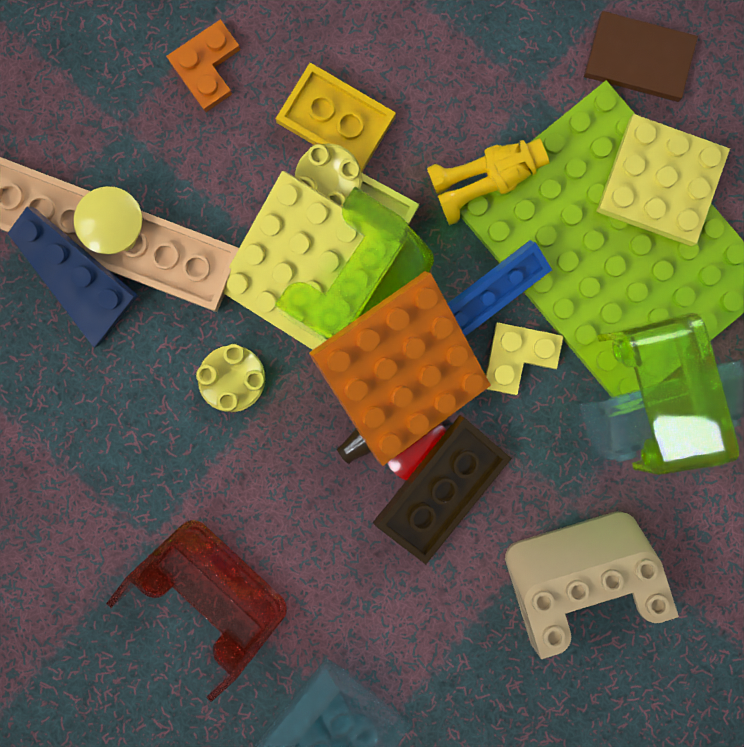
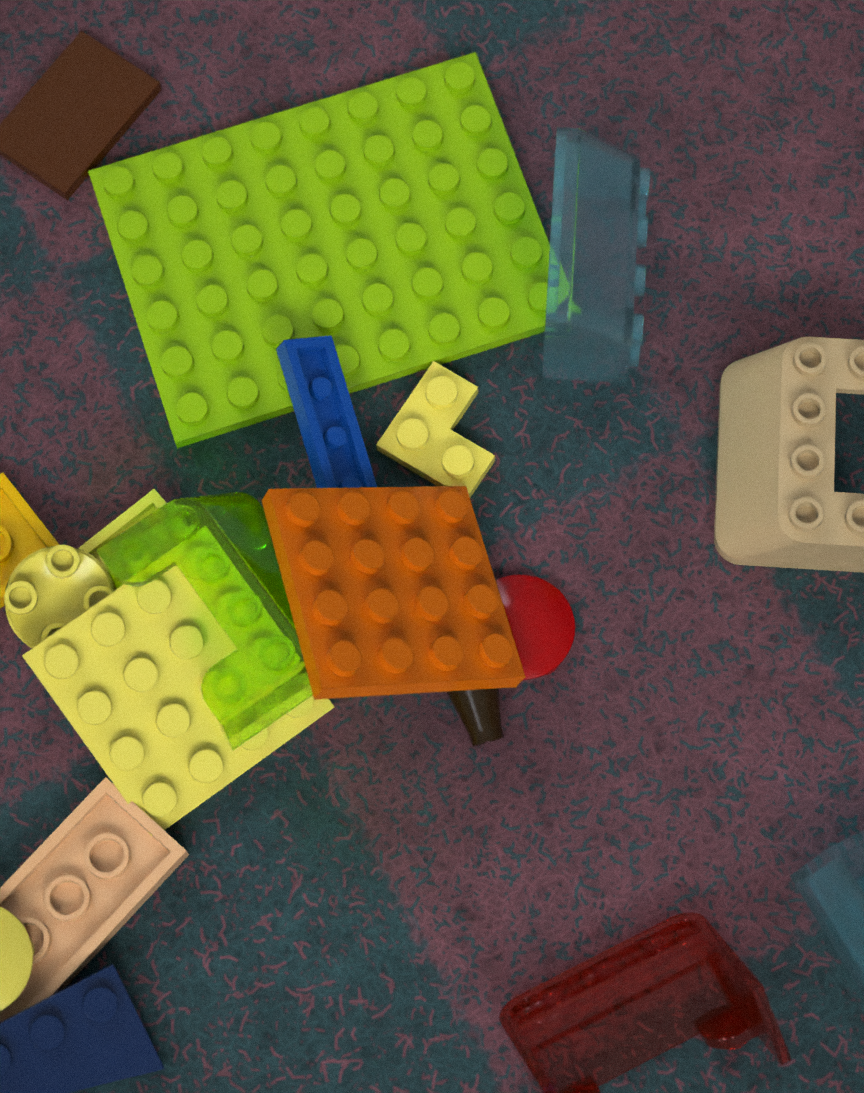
camera: 65 degrees left, 15 degrees down
(231, 378) = (301, 868): light yellow dish -> none
(442, 490) = (595, 610): dark brown plate -> none
(505, 169) = (154, 346): yellow piece -> none
(663, 180) = (266, 147): light yellow plate -> none
(679, 393) = (573, 218): clear neon green windscreen -> none

